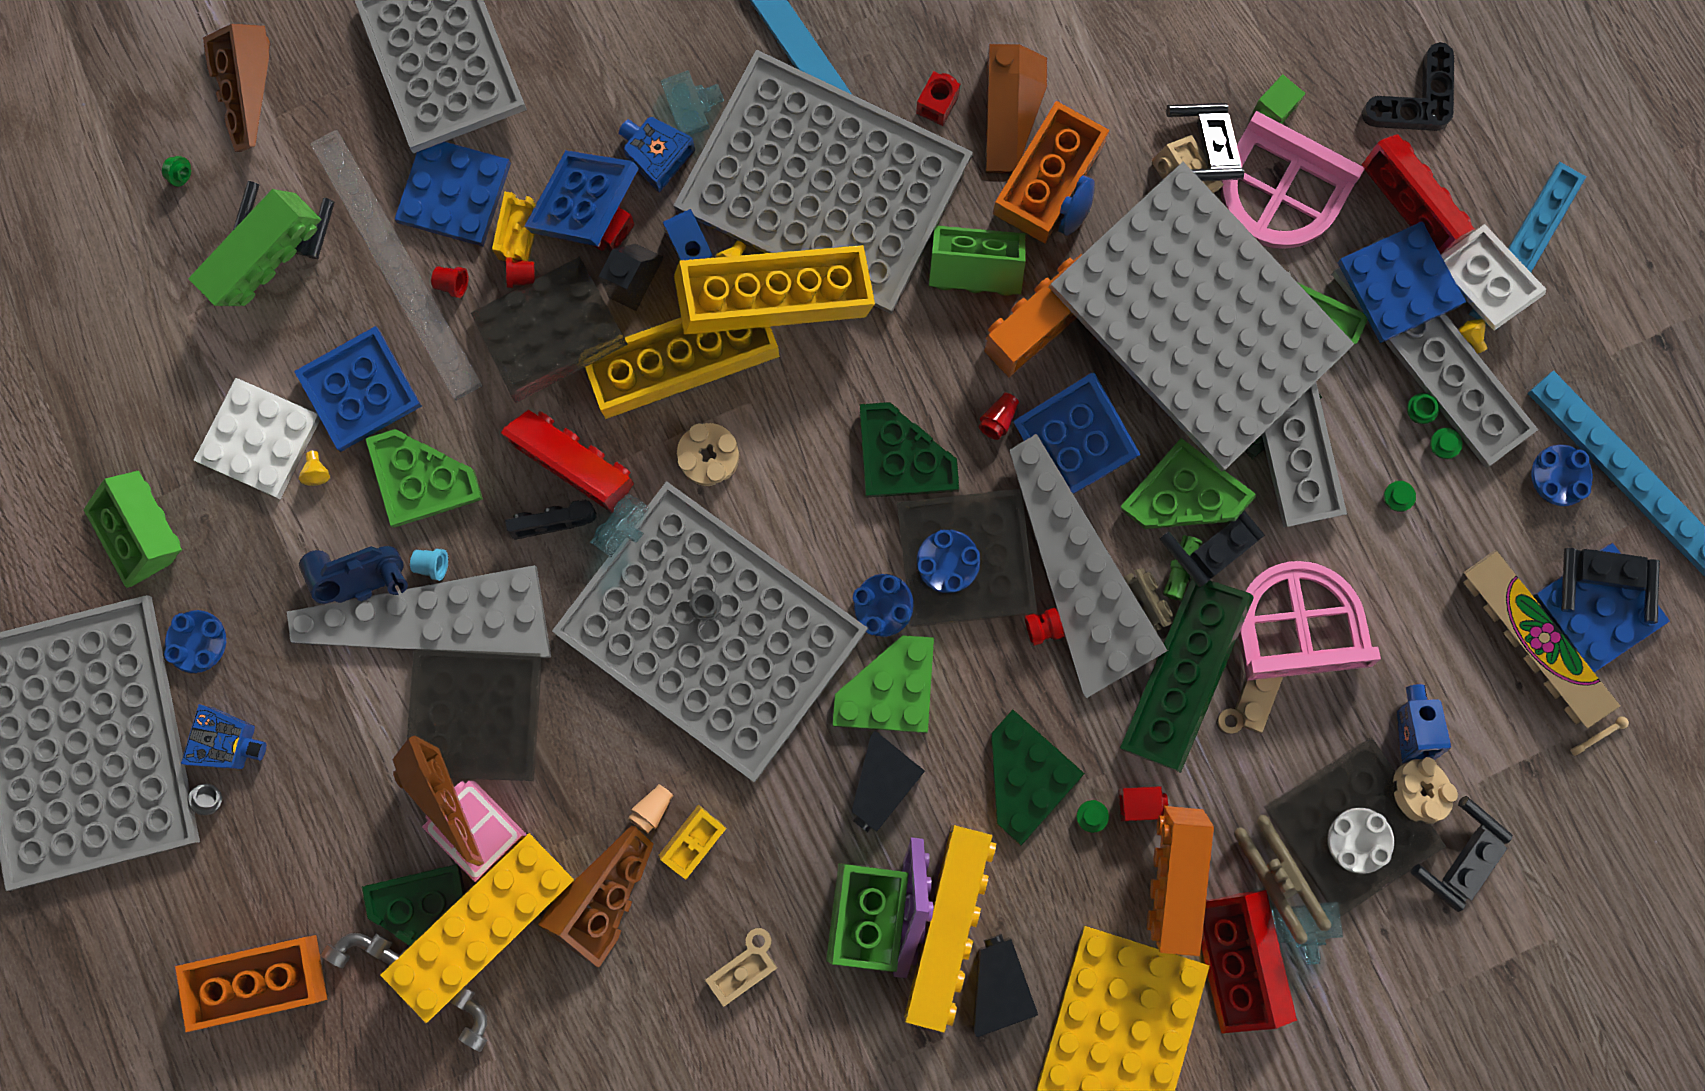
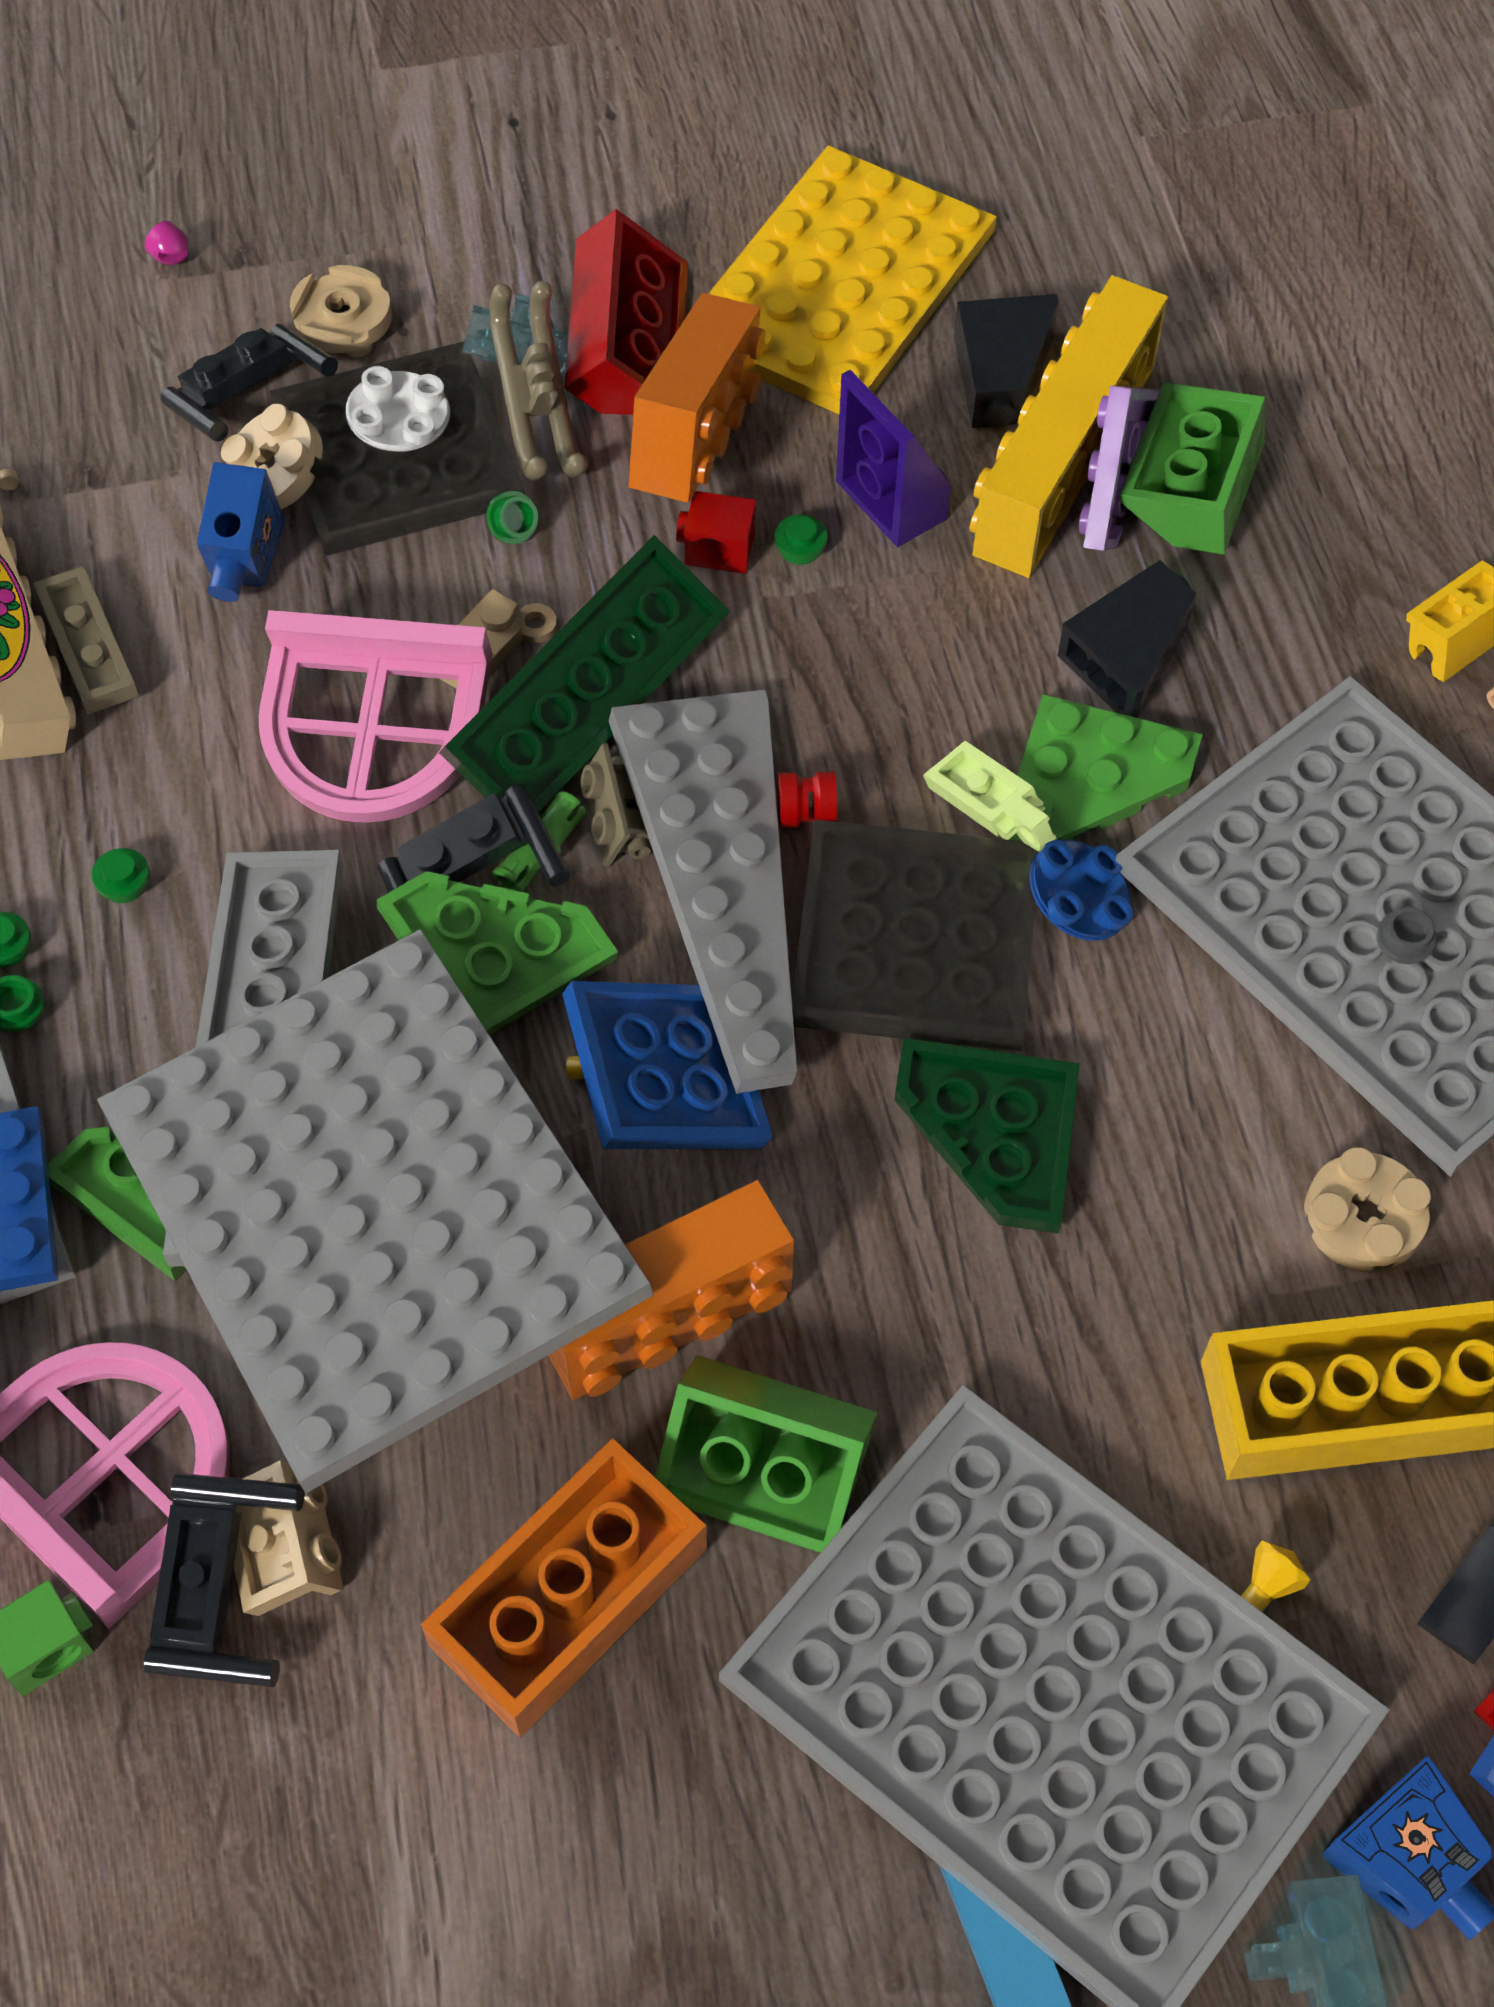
camera: 170 degrees left, 20 degrees down
(686, 235) = (1367, 1607): blue torso -> none
(743, 970) = (1398, 451): tan hinge -> none
(773, 289) = (1212, 1417): yellow brick -> none
(936, 109) = (765, 1795): red brick -> none
(944, 648) = (991, 795): none -> yellowish green hinge
(948, 561) = (954, 914): blue dish -> none
(998, 417) = (796, 1151): red cone -> none
(1013, 99) = (594, 1796): dark orange wedge -> none
(1027, 776) = (888, 612): dark green plate -> none
(1049, 867) = (887, 467): none -> dark purple slope
(1078, 206) = (517, 1501): blue dish -> none
(1266, 787) = (512, 517): none -> green plate
(1412, 943) = (344, 332): none -> tan plate
(1482, 641) = (85, 640): none -> dark tan plate
(1557, 960) = (167, 243): none -> dark pink hinge

